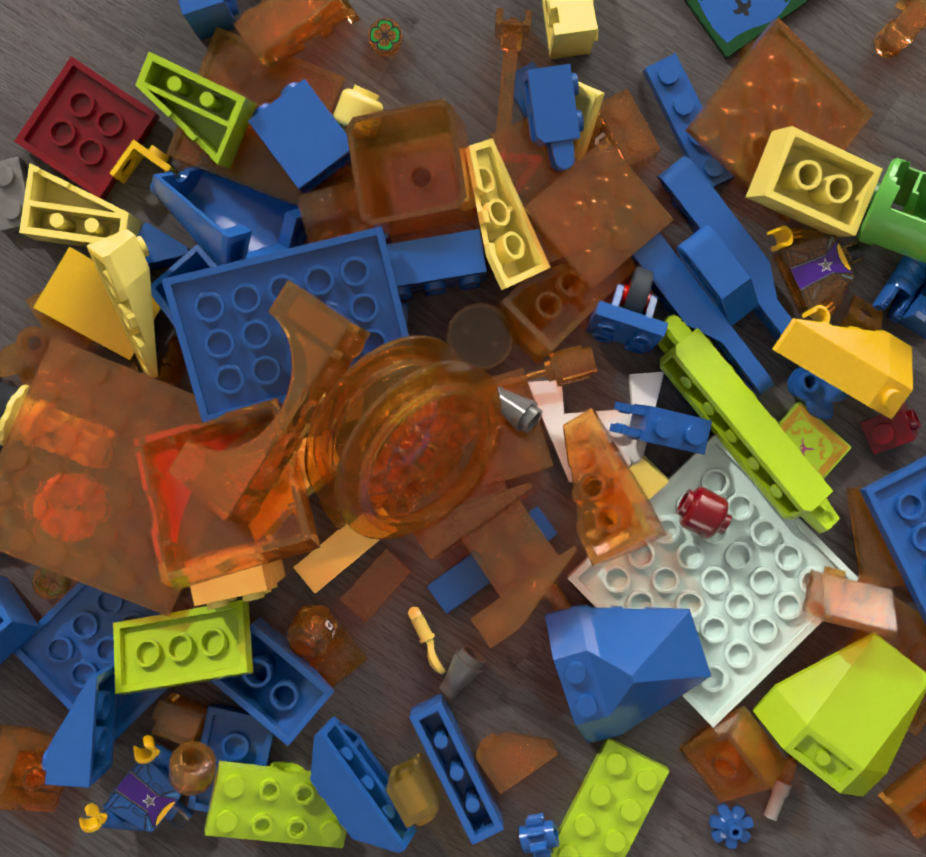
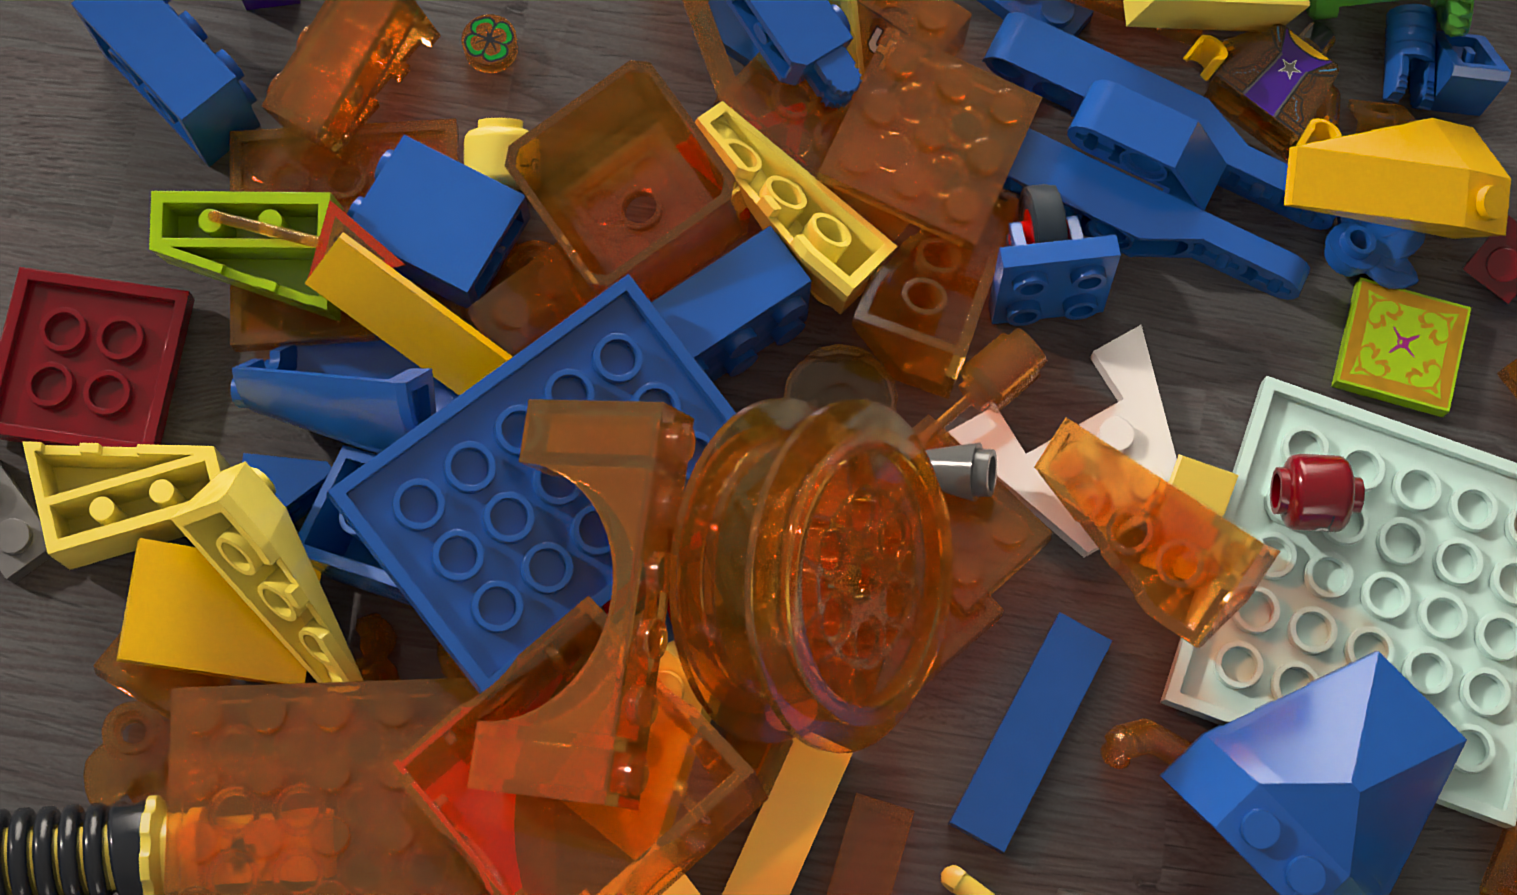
camera: 30 degrees left, 15 degrees down
(136, 153) = (210, 357): yellow bracket -> none
(238, 133) = (334, 224): none -> clear orange piece
(259, 191) = (404, 316): none -> yellow tile
(509, 552) = (1051, 695): clear orange wedge -> none
(664, 427) = (1187, 398): blue hinge -> none
(745, 426) = (1306, 345): lime hinge -> none

